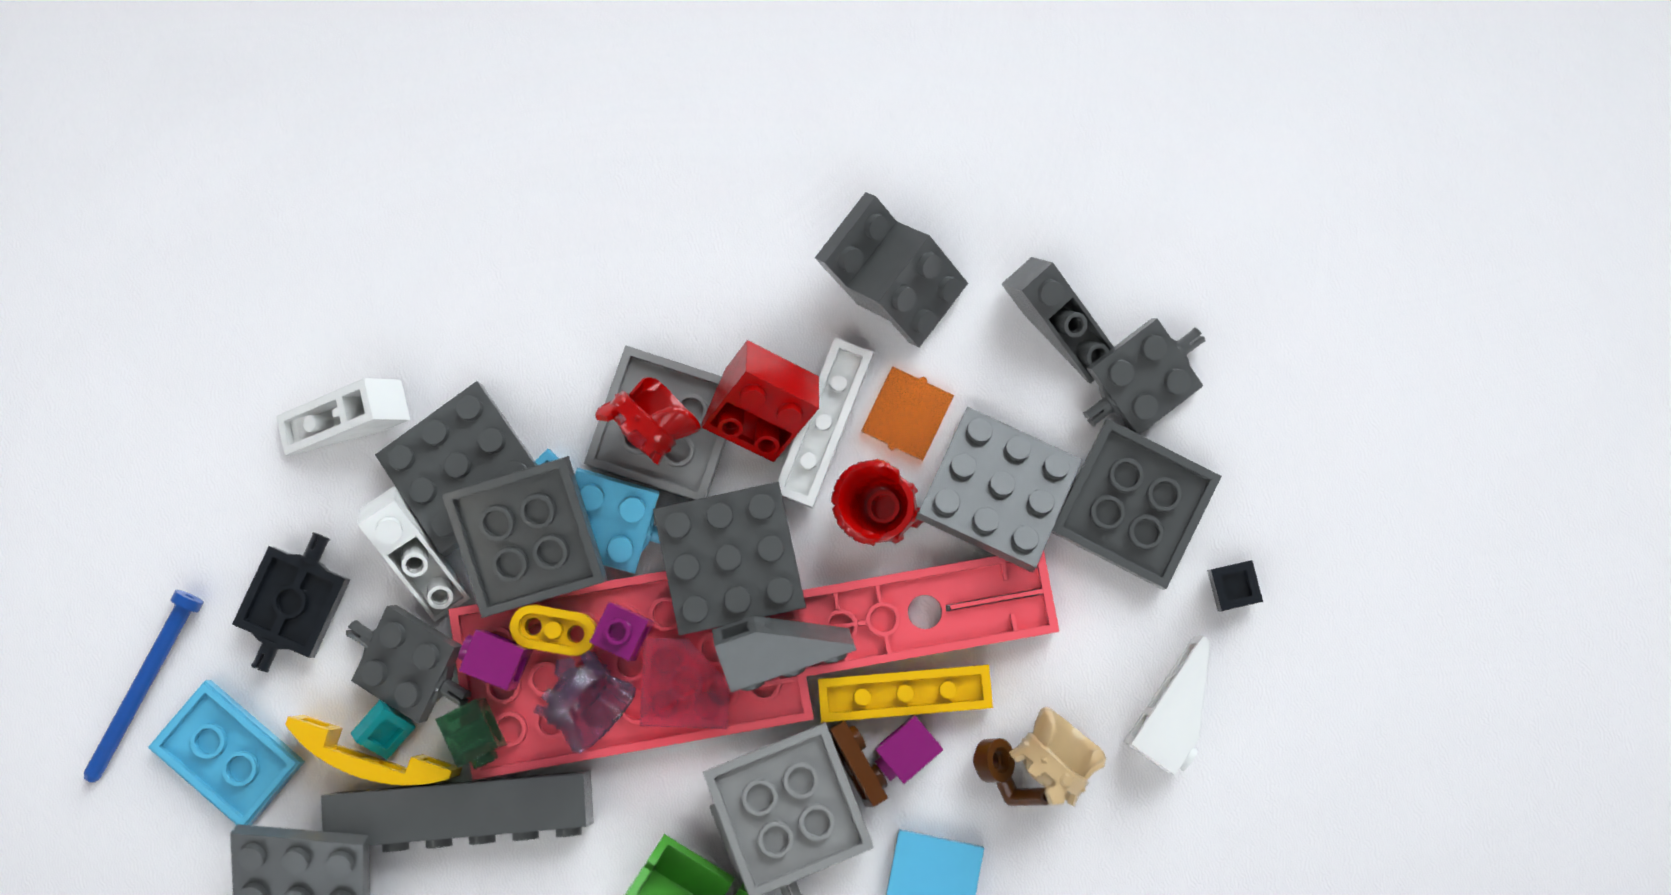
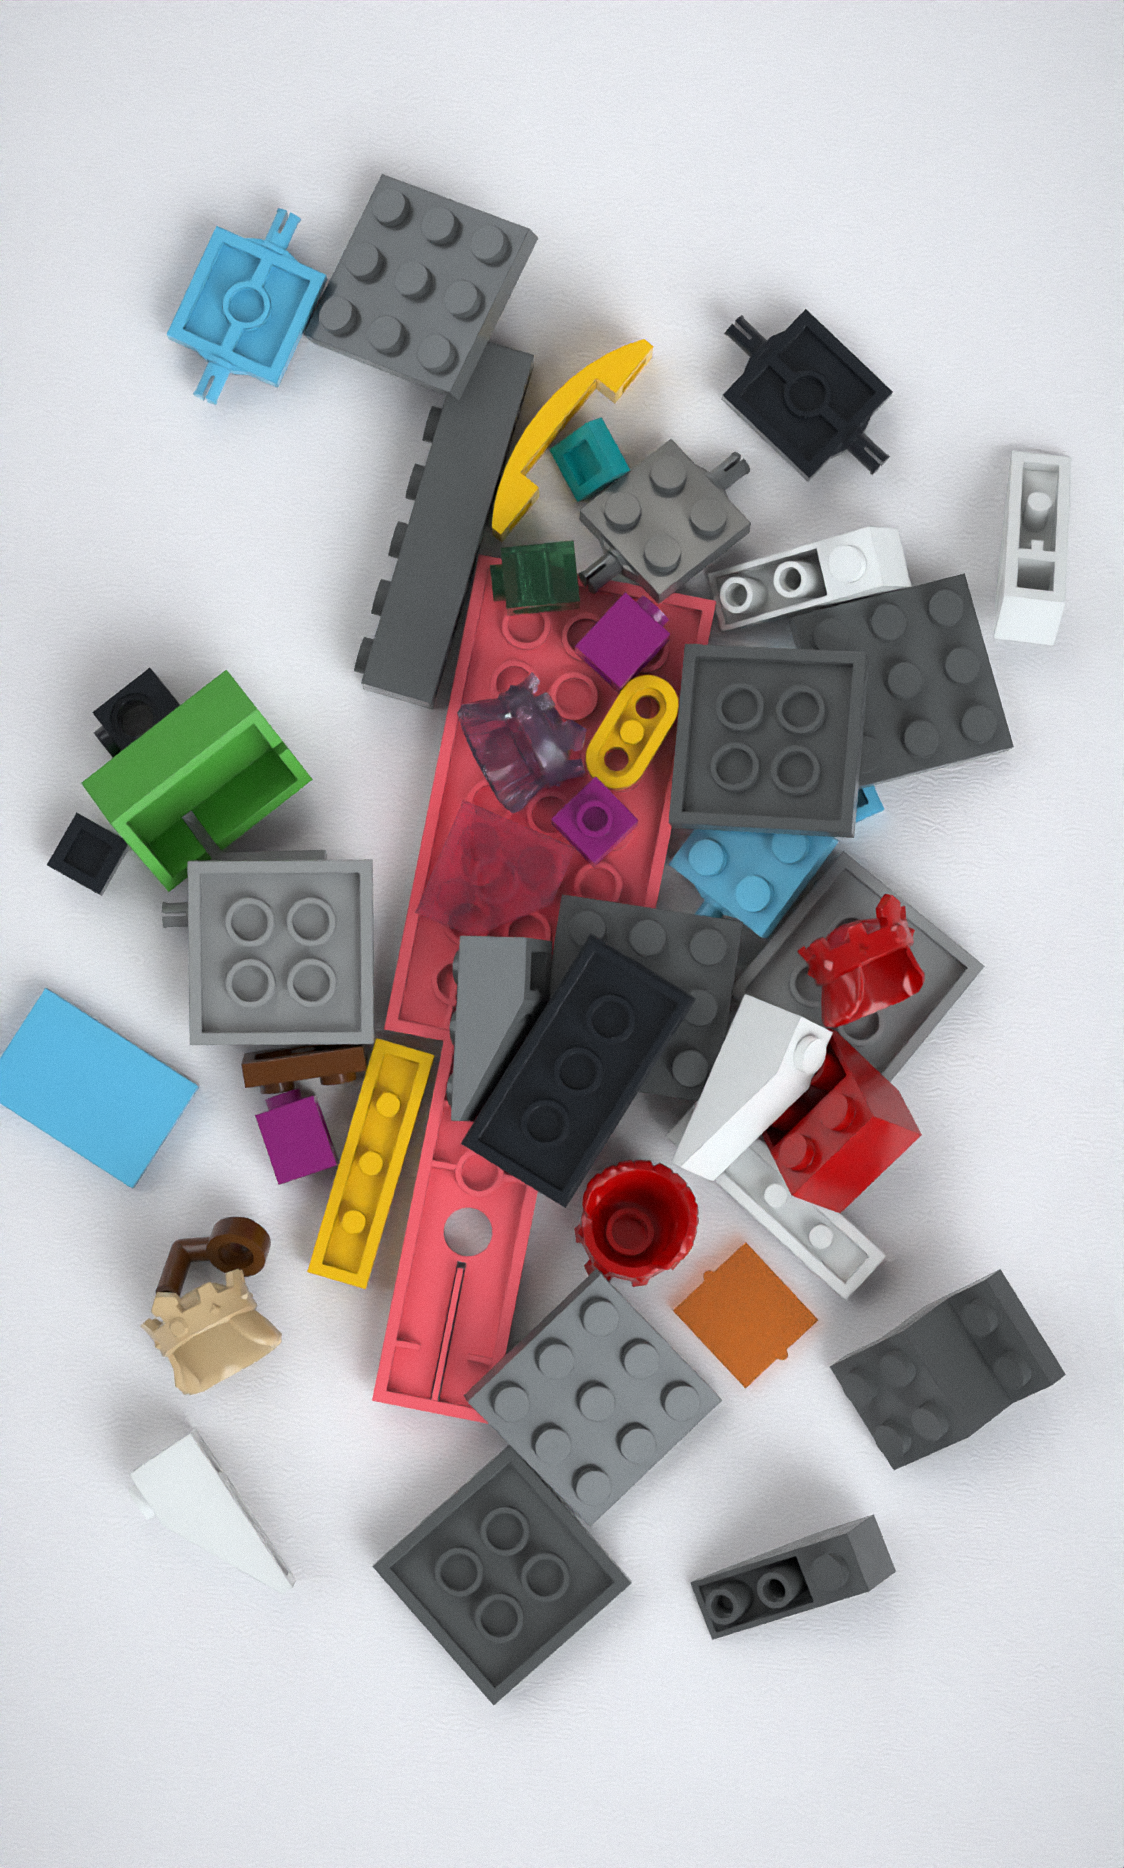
camera: 110 degrees right, 5 degrees up
(184, 605) = (855, 250): blue bar -> none
(226, 754) = (638, 241): medium azure tile -> none
(750, 460) = (753, 1082): none -> white slope
(790, 578) = (578, 1070): none -> black tile
(1144, 376) = (669, 1659): dark grey plate -> none
(1235, 586) = (341, 1662): black plate -> none

